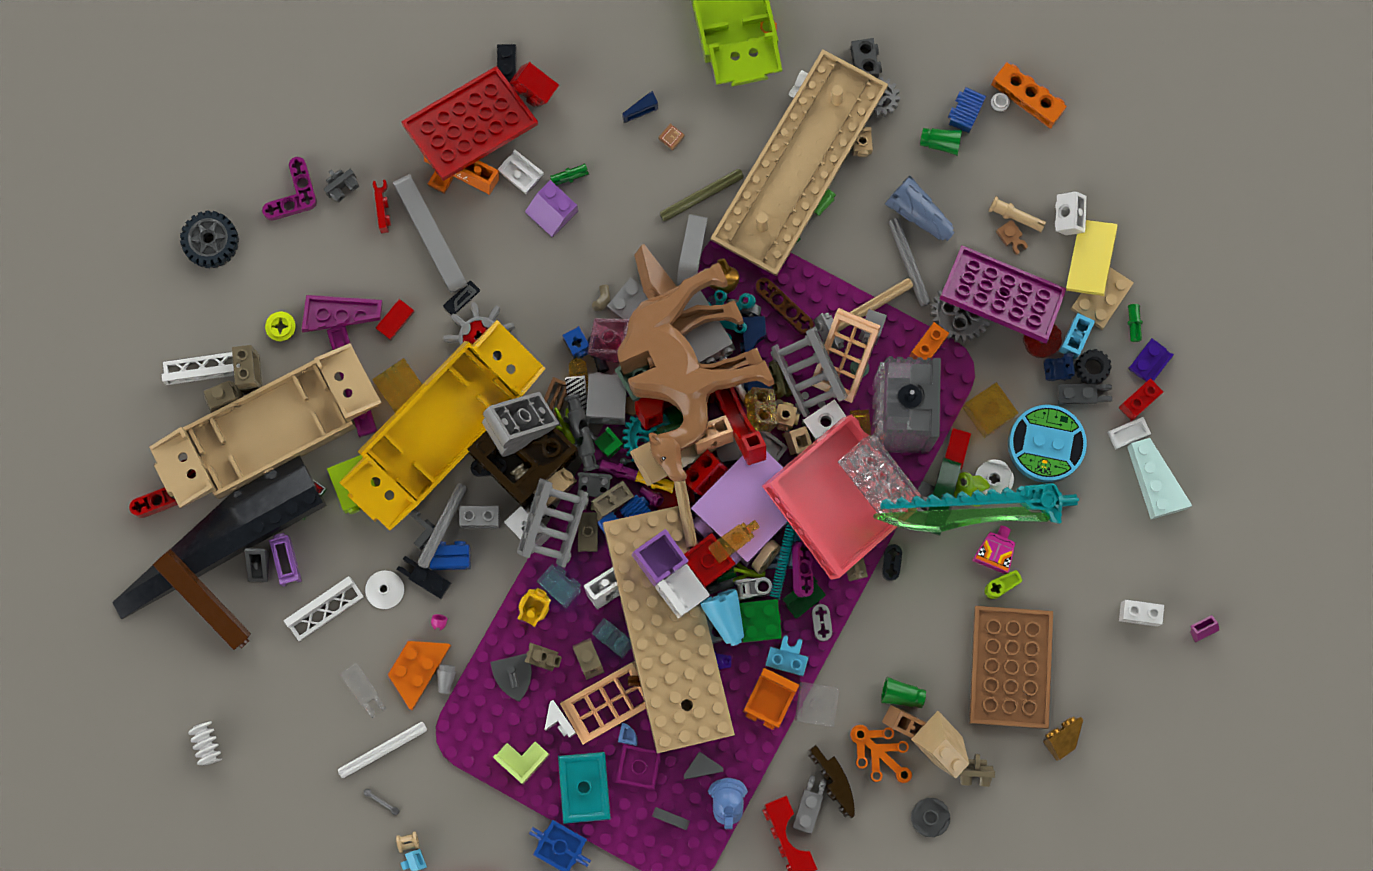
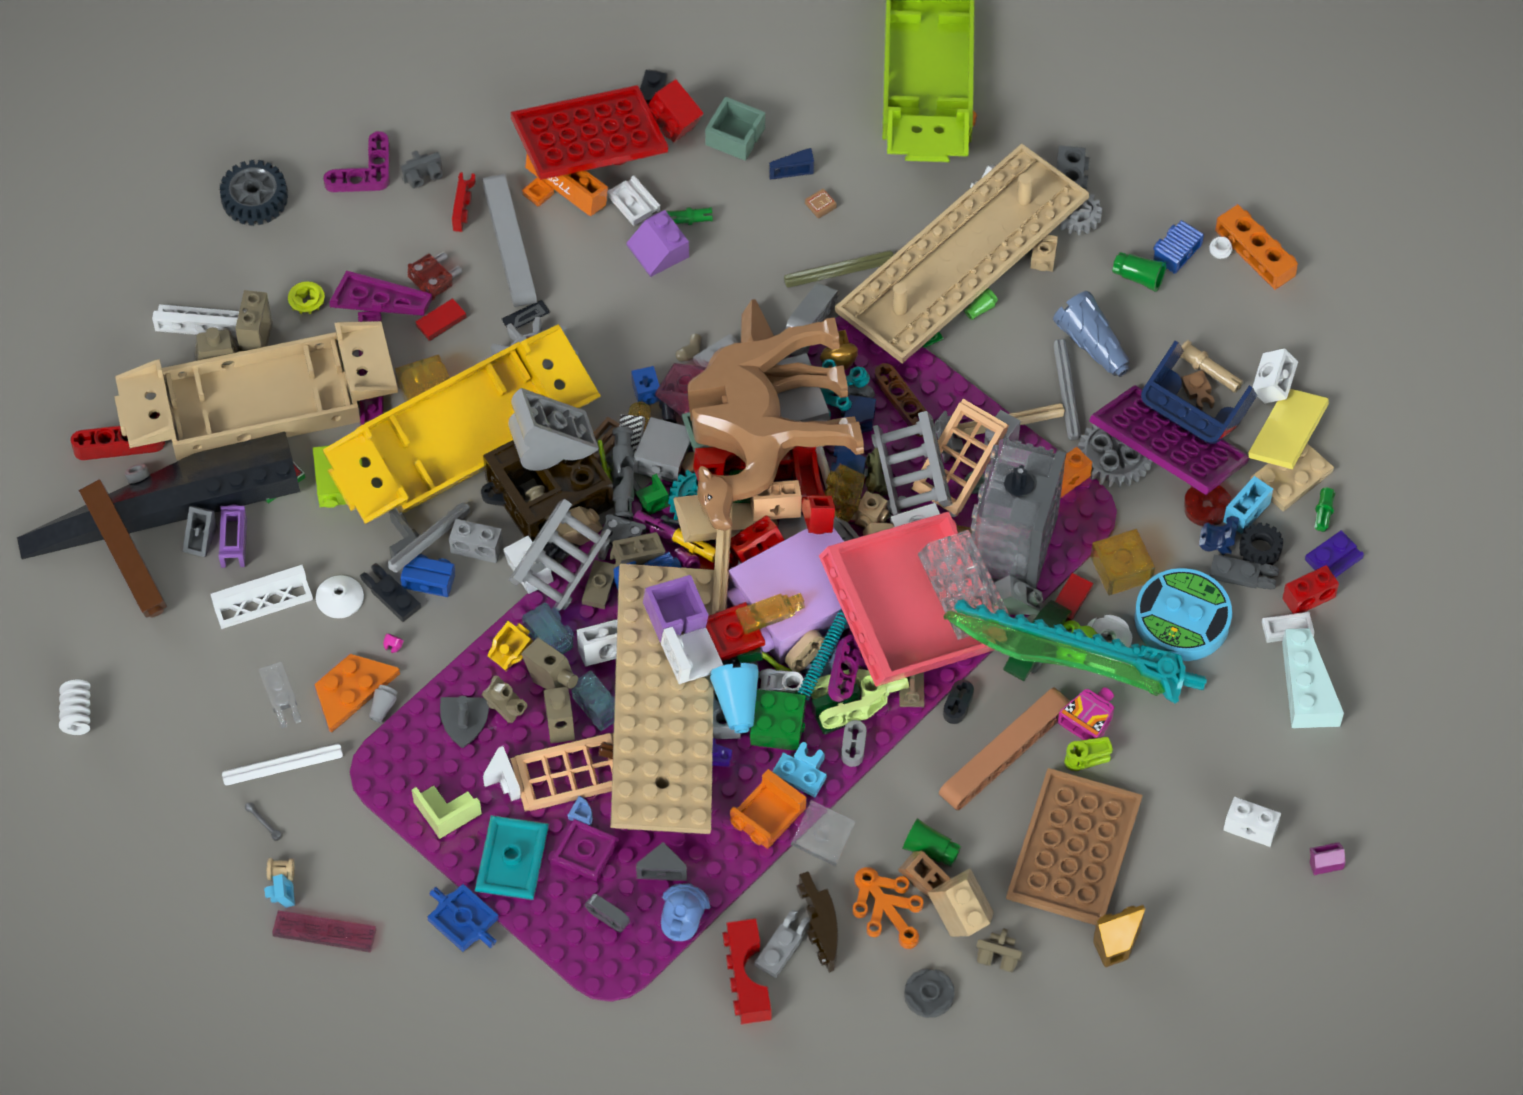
camera: 15 degrees right, 20 degrees down
(191, 522) = (137, 473): none -> light grey tile
(374, 283) = (431, 275): none -> clear red piece
(571, 623) = (548, 666): none -> dark tan torso
(586, 86) = (735, 128): none -> sand green piece
(809, 602) = (865, 708): none -> yellowish green piece
(918, 464) = (1019, 596): none -> light grey slope
(939, 596) = (1004, 749): none -> nougat beam
(1011, 265) = (1161, 396): none -> dark blue windscreen

